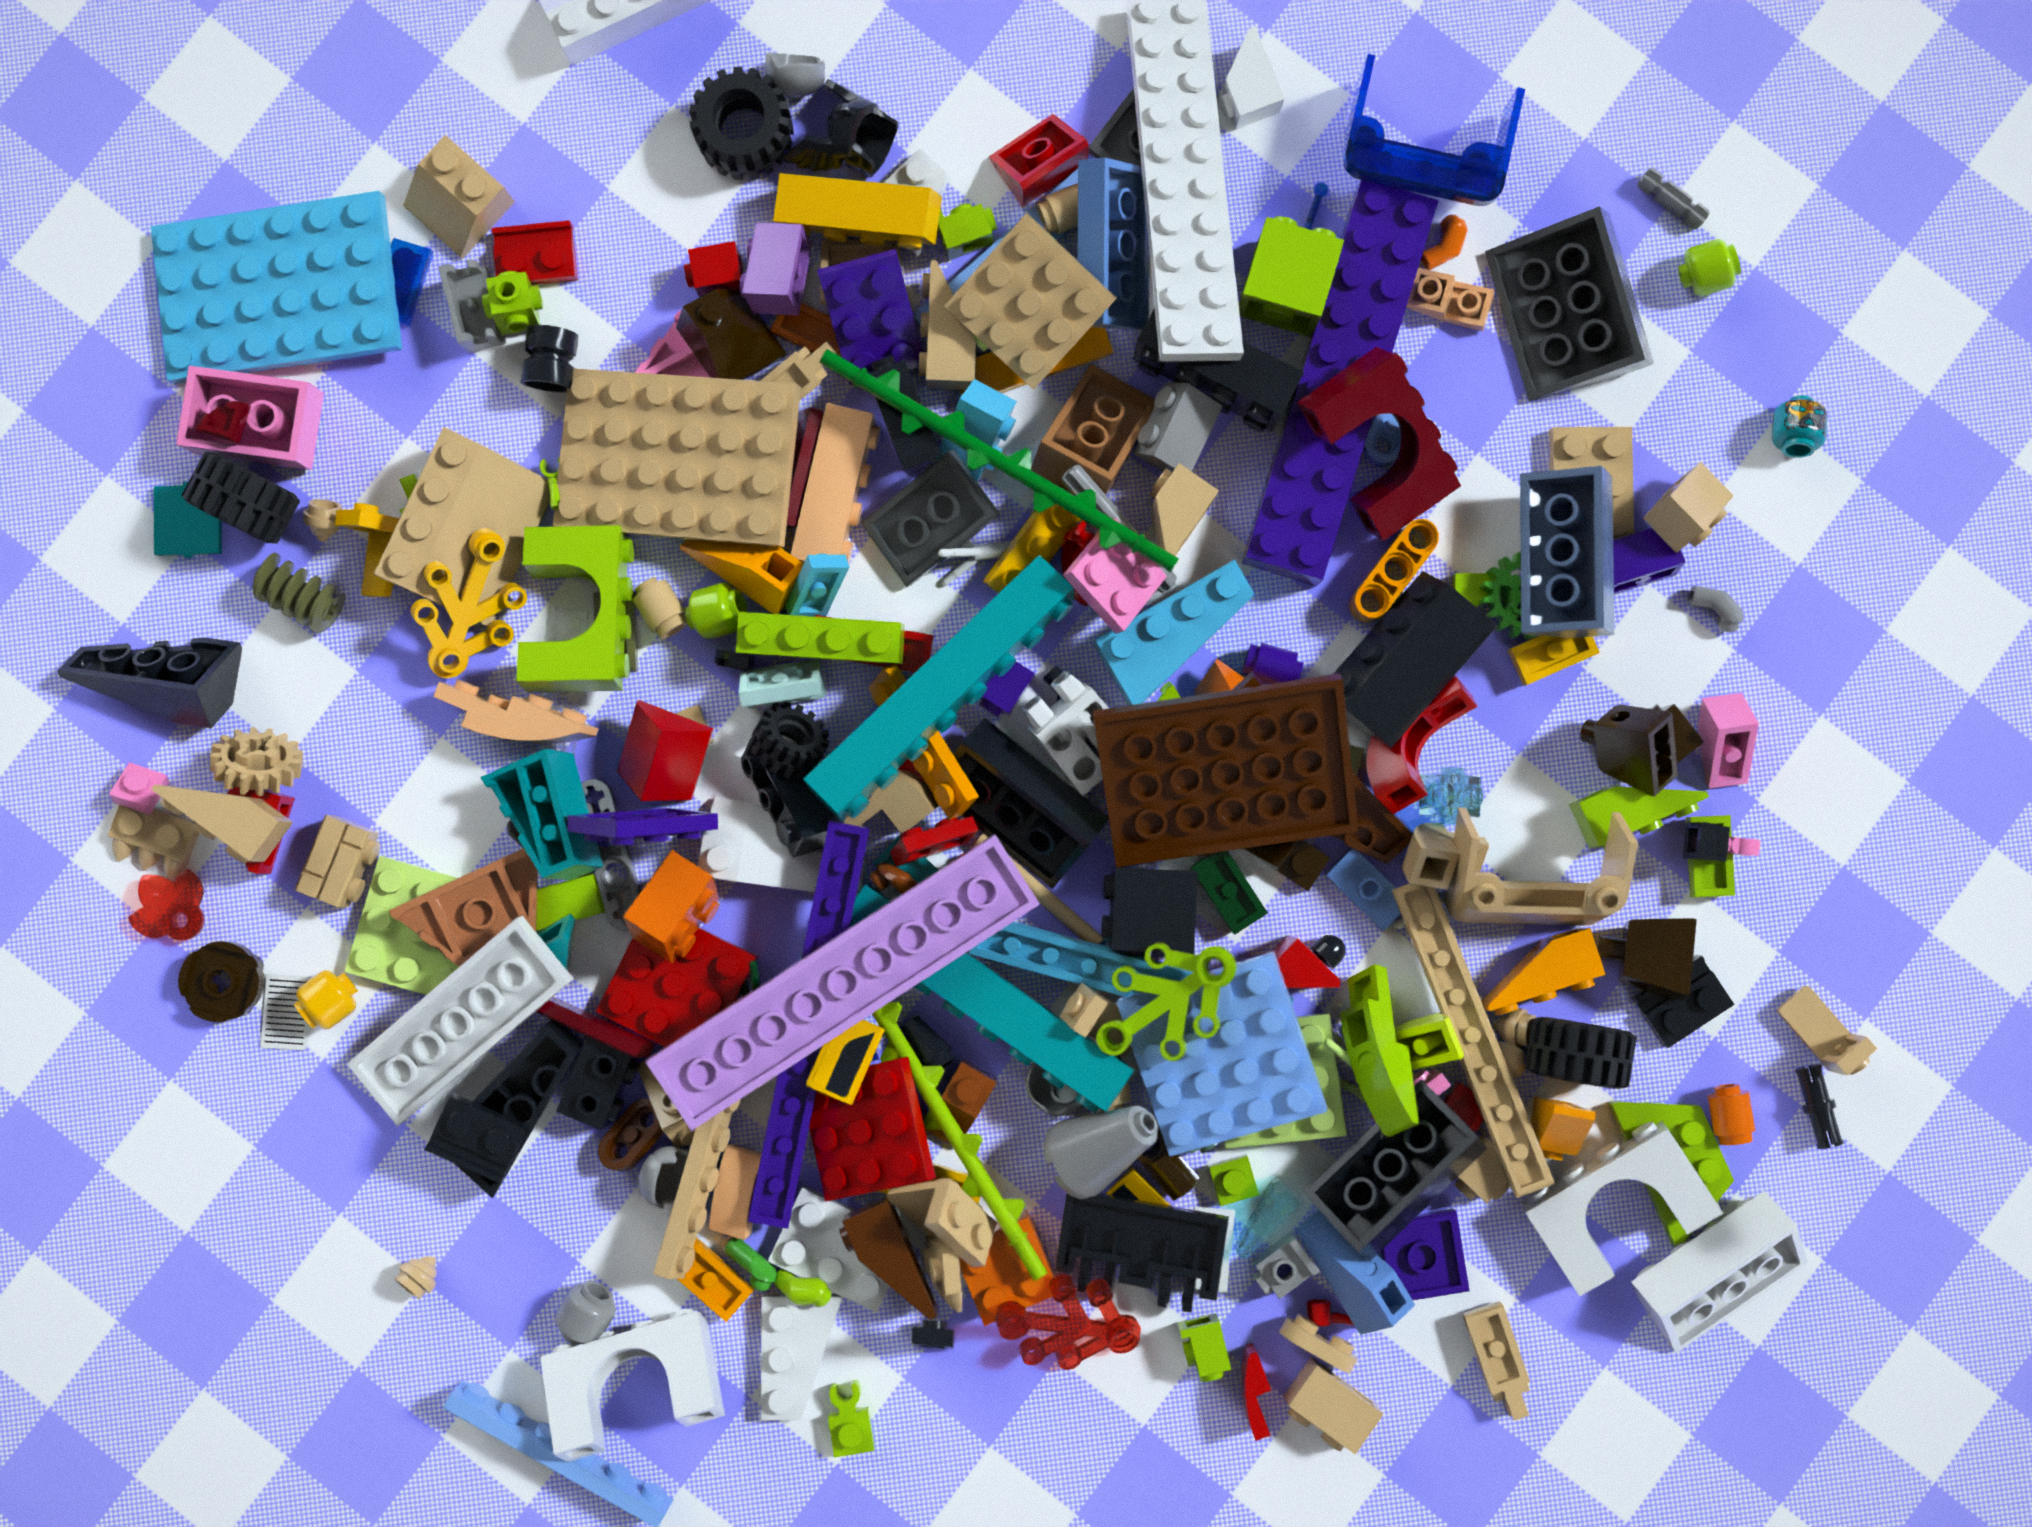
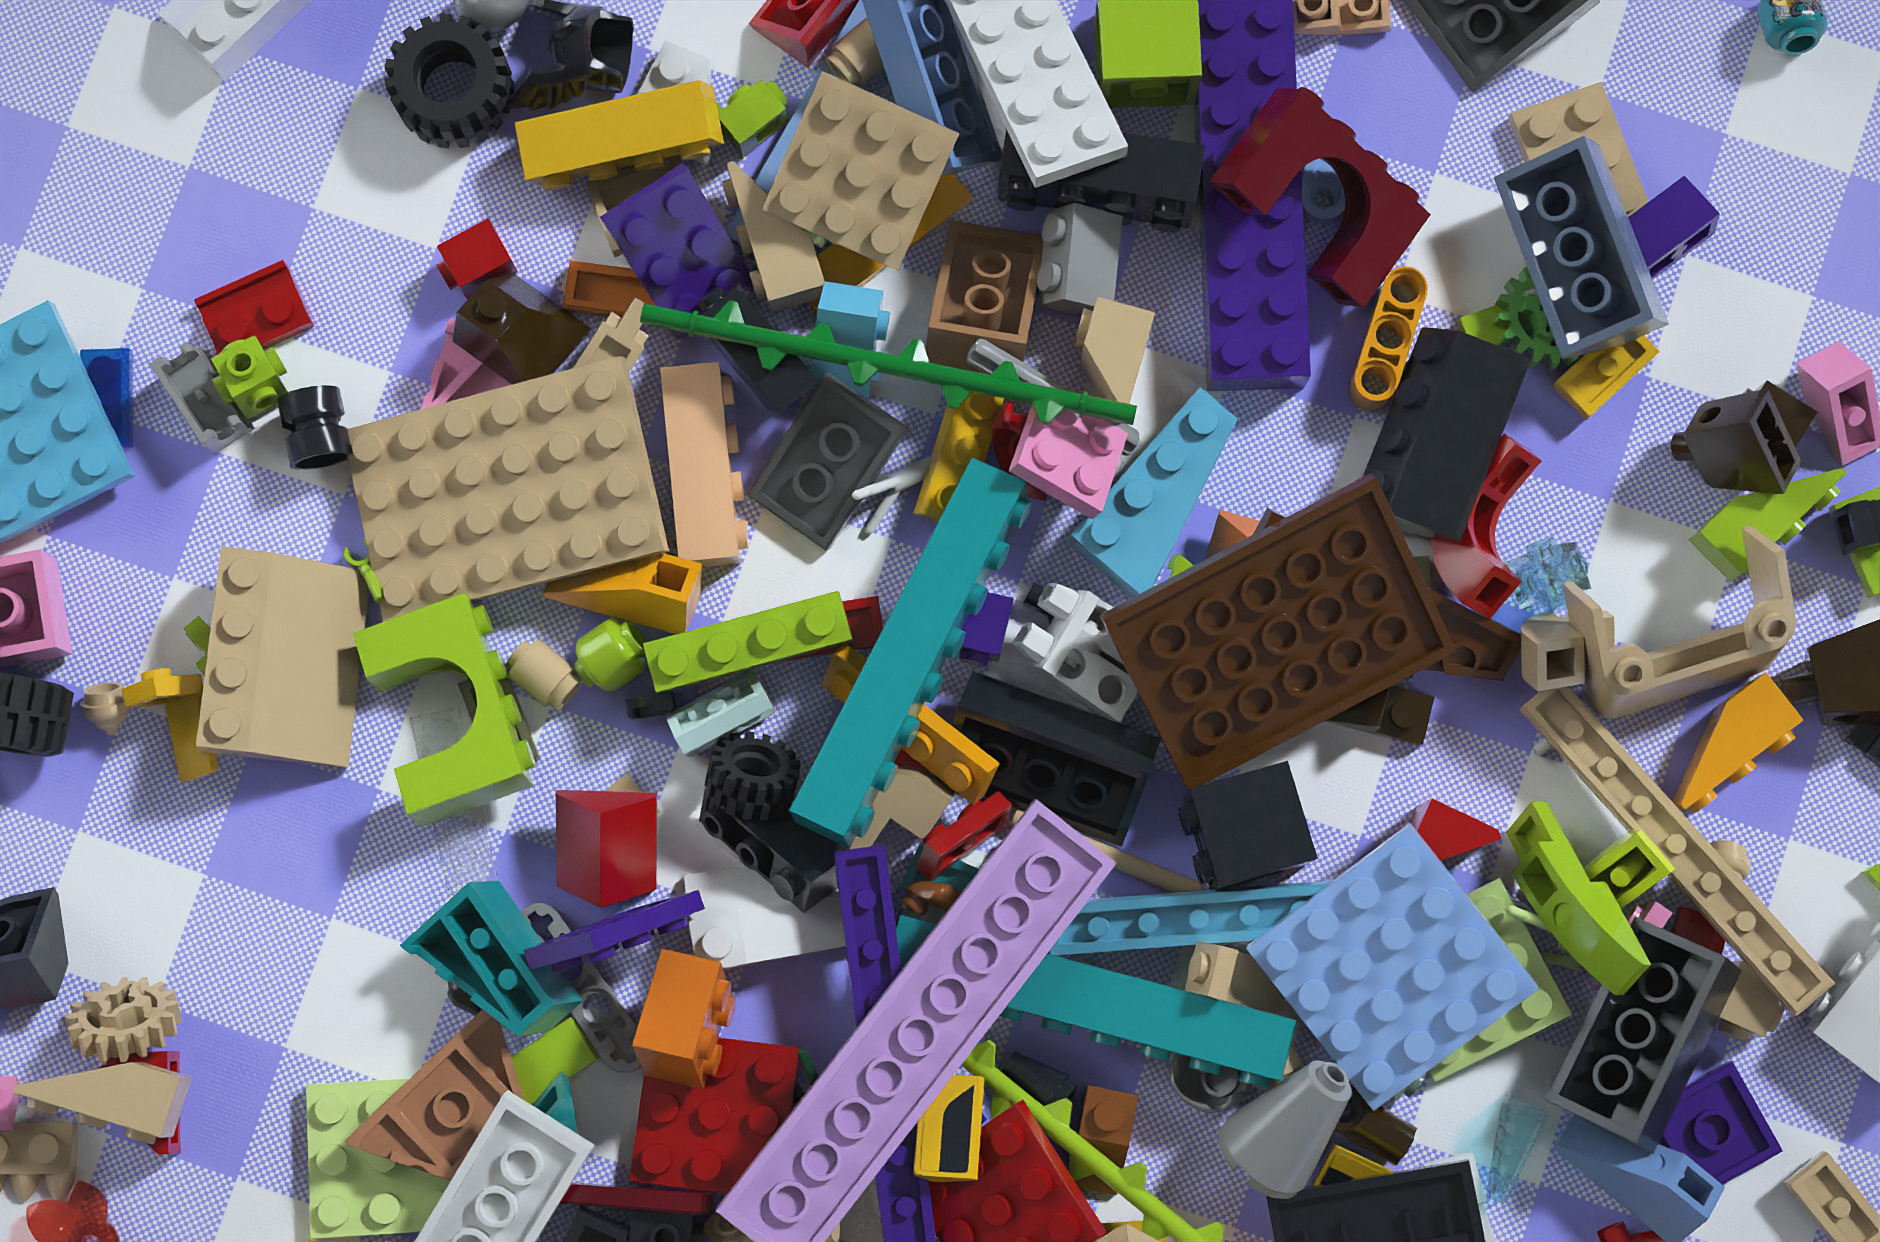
camera: 20 degrees left, 5 degrees down
(295, 596) = (104, 807): olive piece -> none
(338, 861) = (260, 1107): tan brick -> none
(456, 197) = (140, 278): tan slope -> none
(466, 610) = (316, 754): yellow plant -> none
(515, 719) = (421, 863): light nougat slope -> none
(776, 268) = (547, 233): medium lavender brick -> none
(806, 439) = (652, 420): dark red tile -> none
(817, 585) = (722, 581): medium azure plate -> none
(1173, 996) = (1311, 916): lime plant -> none
(1229, 891) = (1331, 776): dark green plate -> none
(1233, 1180) = (1457, 1117): lime plate -> none
(1272, 664) = (1285, 492): dark purple brick -> none
(1284, 1251) = (1549, 1178): light grey brick -> none
(1329, 950) = (1474, 802): black hinge -> none
(1365, 888) = (1488, 718): medium blue plate -> none
(1515, 1027) = (1724, 819): tan plate -> none
(1560, 1126) = (1818, 916): light orange slope -> none
(1581, 1052) = (1808, 819): black tyre -> none
(1689, 508) = (1702, 151): tan brick -> none
(1722, 603) = (1779, 247): light grey arm -> none

